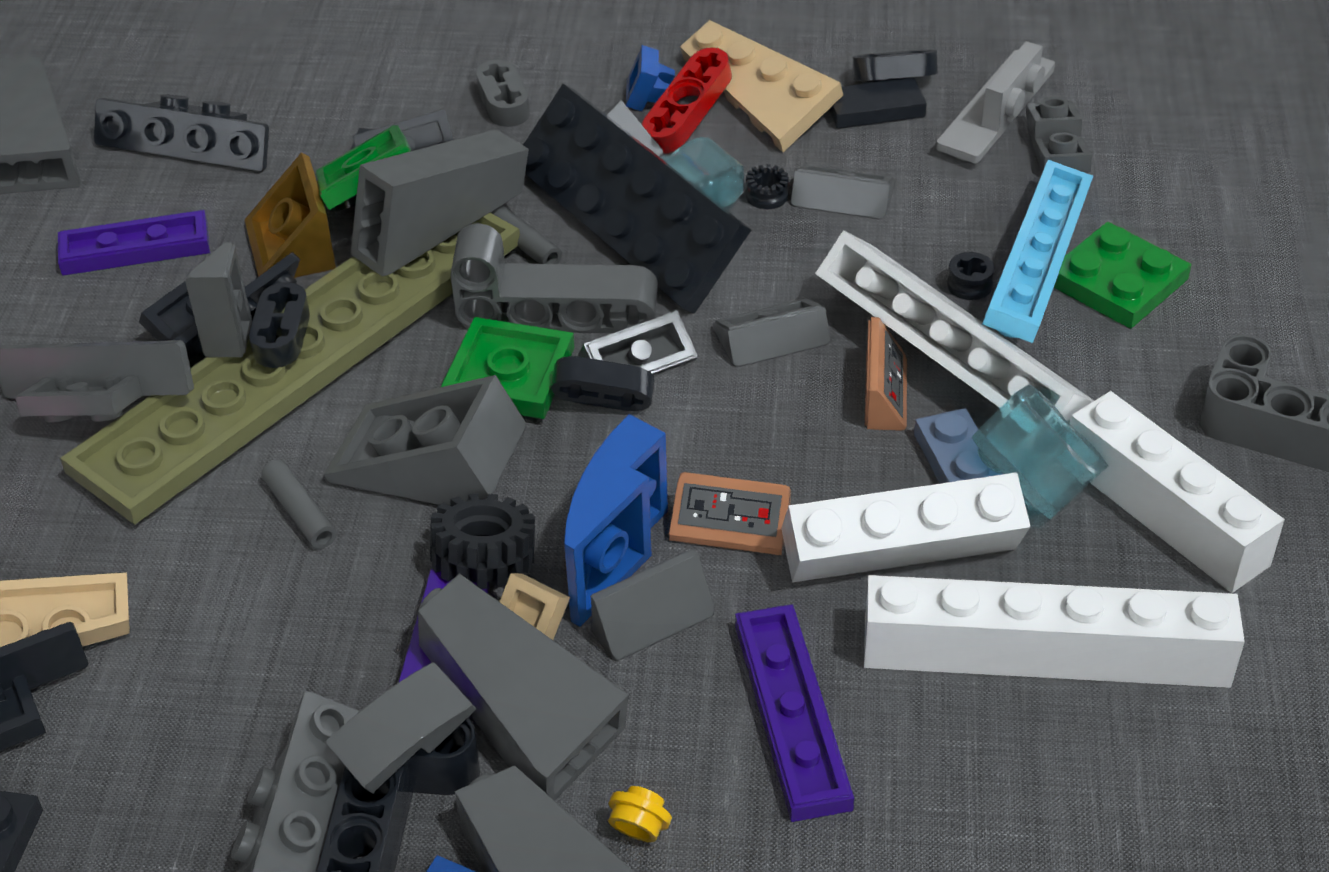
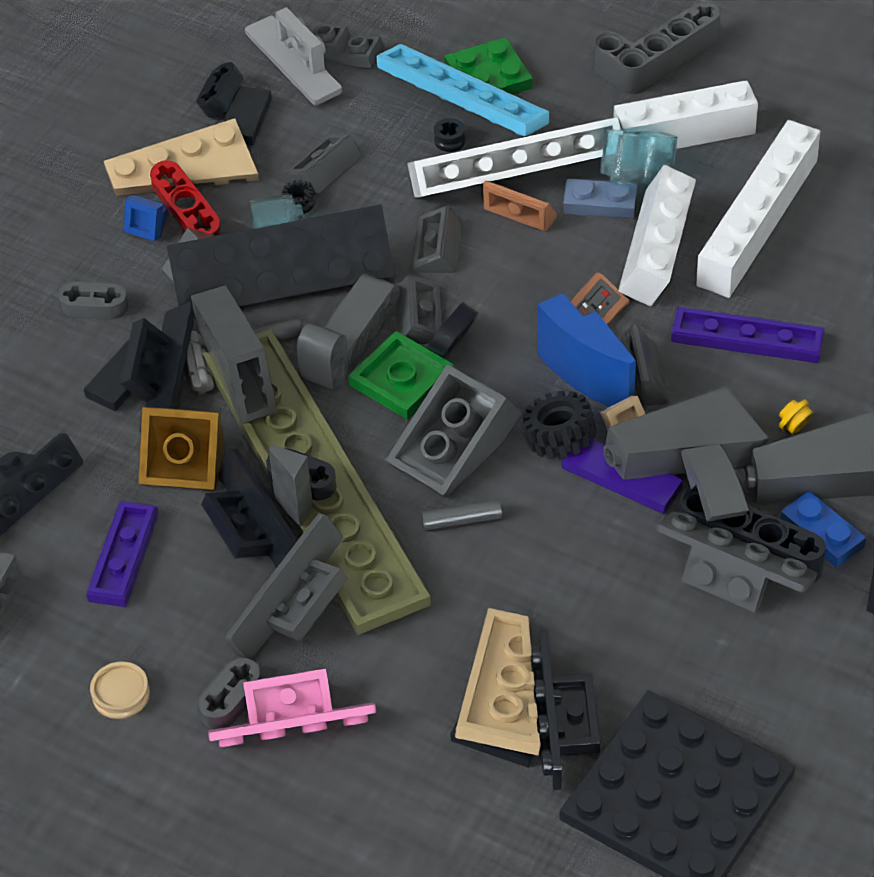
camera: 65 degrees left, 5 degrees up
(339, 178) = (177, 375): green tile -> none

